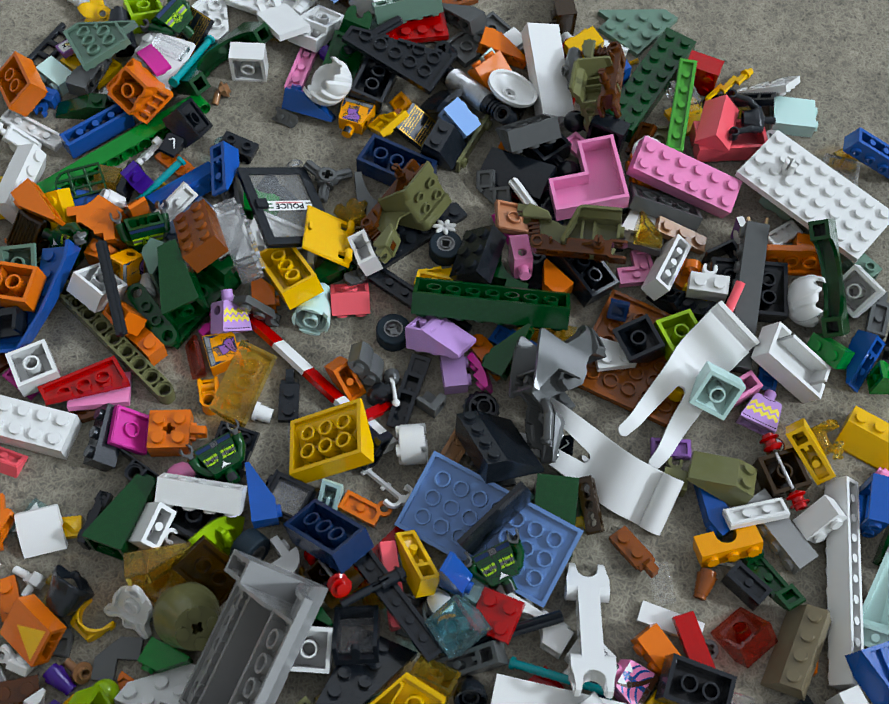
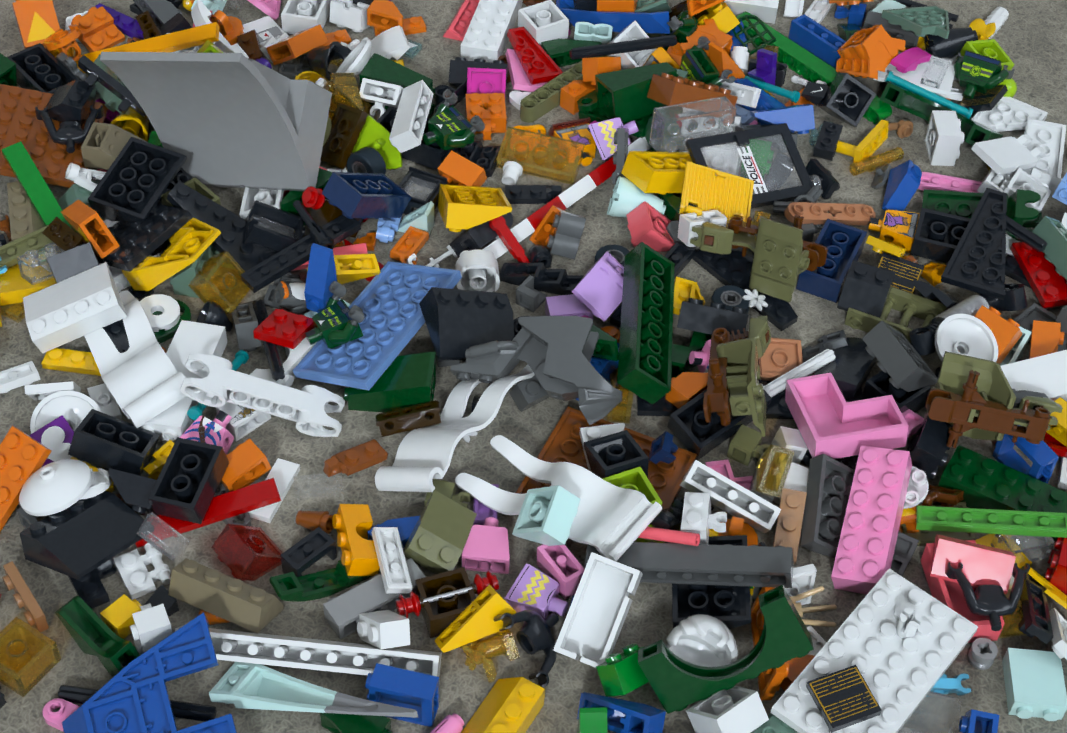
camera: 90 degrees right, 15 degrees down
(57, 324) = (591, 32): none -> light aqua brick
(72, 352) = (559, 50): none -> dark green slope
(90, 561) = (357, 58): none -> white dish
(141, 400) = (516, 96): none -> white tile
(253, 125) = (867, 145): none -> yellow piece
(262, 502) = (413, 161): blue slope -> none
(267, 454) = (461, 171): none -> orange brick
(271, 130) = (871, 163): none -> clear yellow pin
(284, 158) = (828, 182): none -> black tile
(329, 83) = (919, 192): white piece -> none
(343, 169) = (843, 213): none -> nougat piece
(392, 381) = (556, 263): hinge -> none
(457, 626) = (269, 290): clear light blue slope -> none
(461, 117) = (906, 301): light blue brick -> none
(496, 518) = (381, 307): black slope -> none
(719, 441) = (487, 548): none -> bright pink torso
(802, 410) = (534, 637): none -> black piece
(852, 213) = (843, 698): none -> black tile

